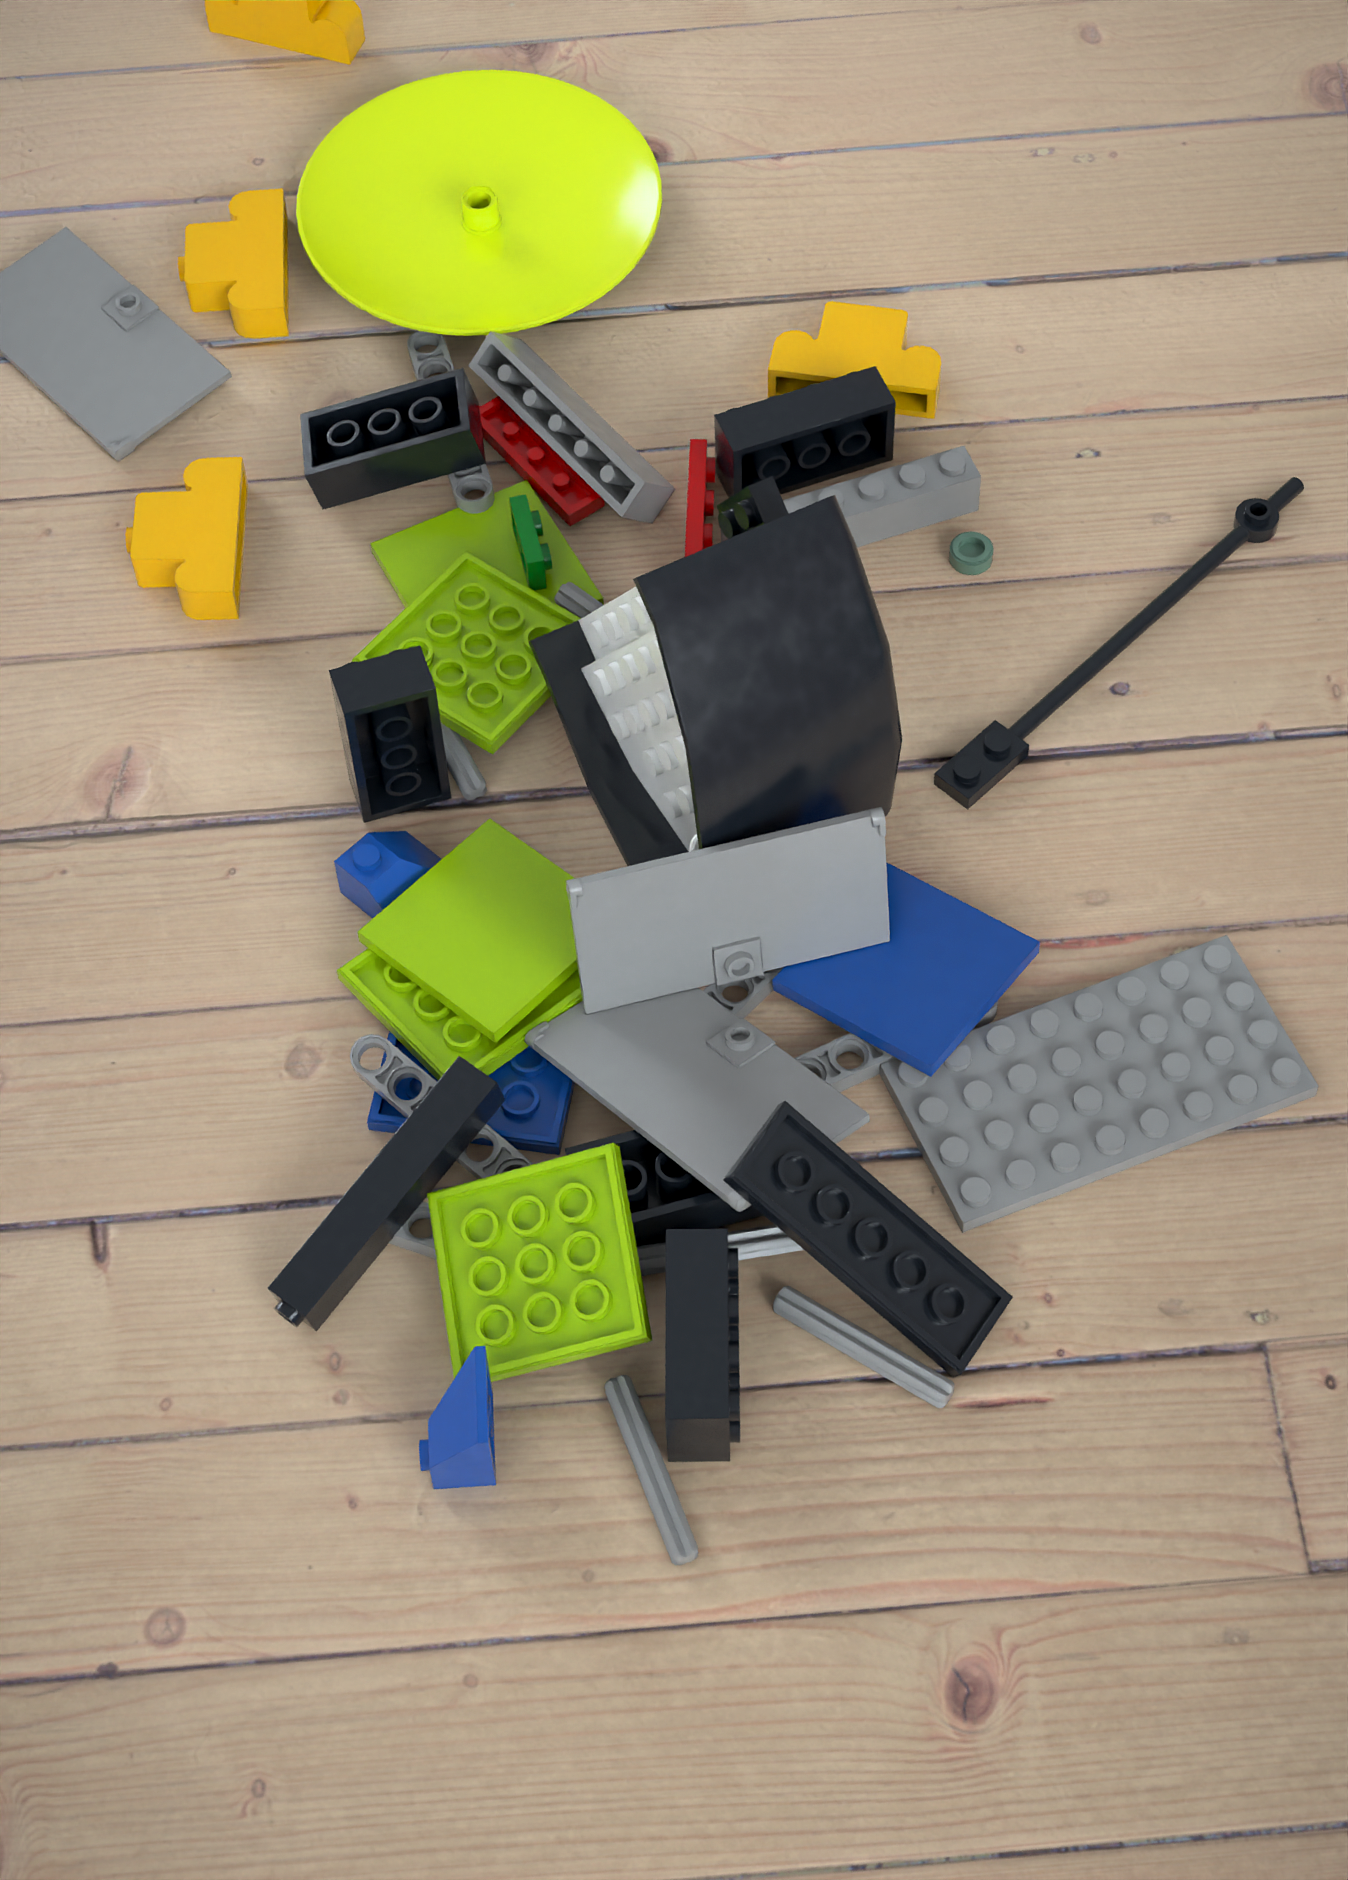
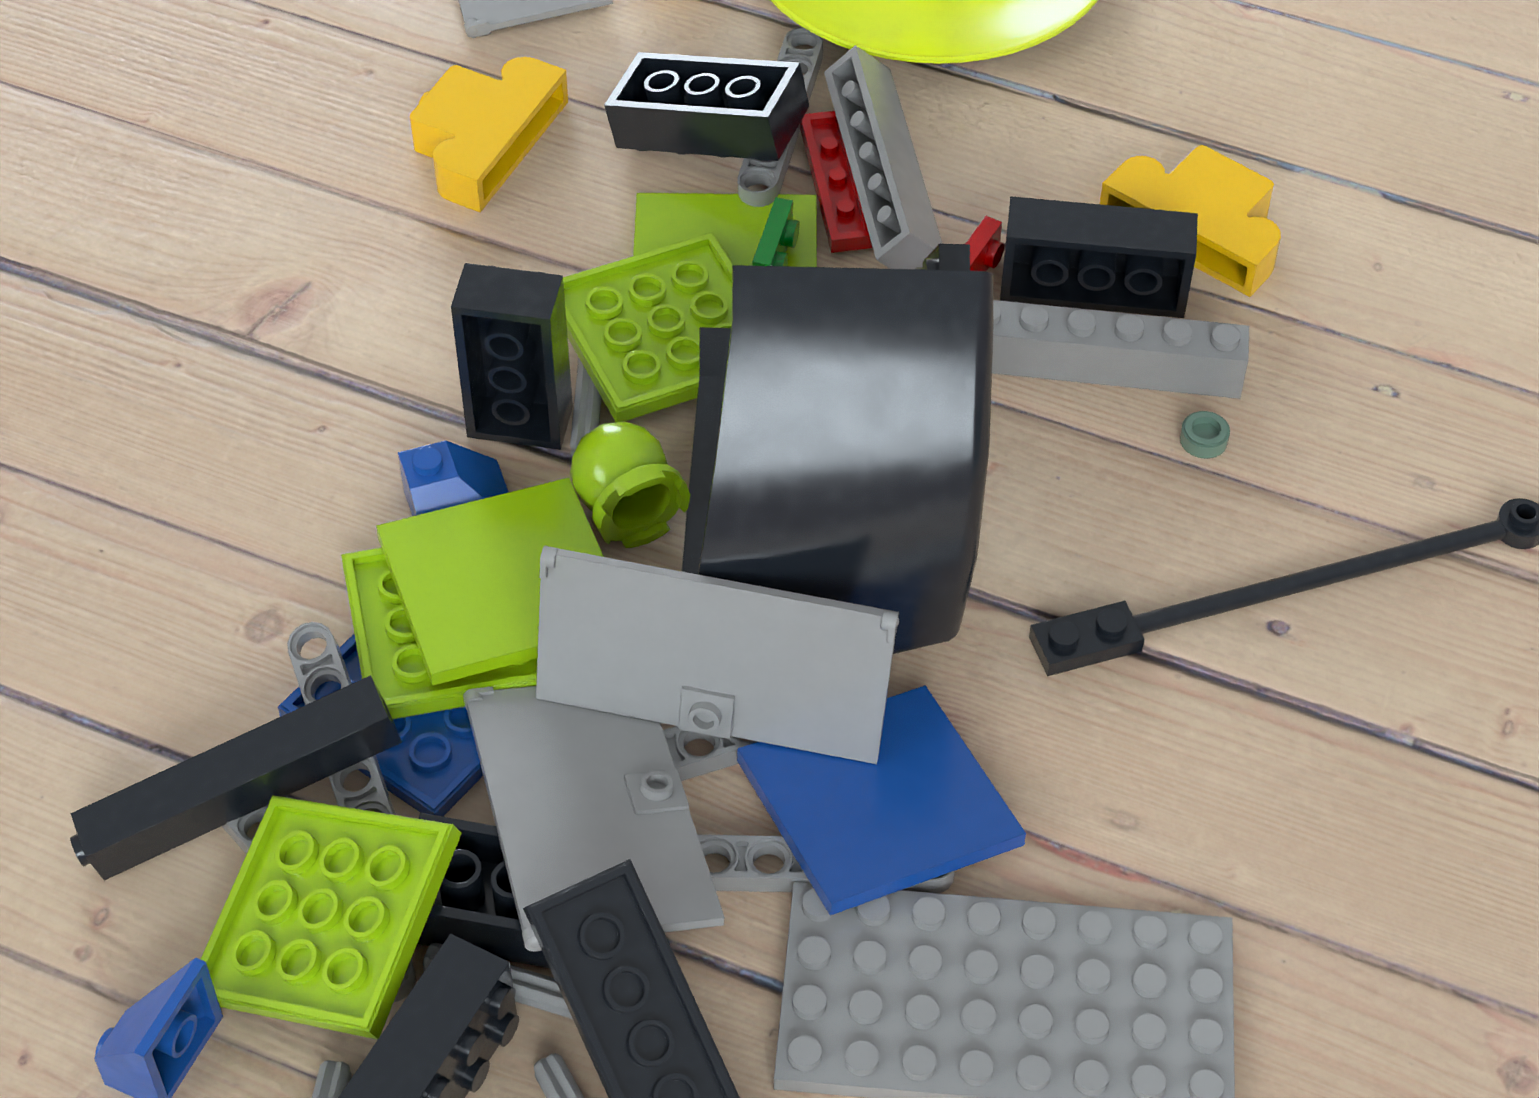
camera: 25 degrees right, 5 degrees down
(540, 800) = (627, 483): none -> lime tile

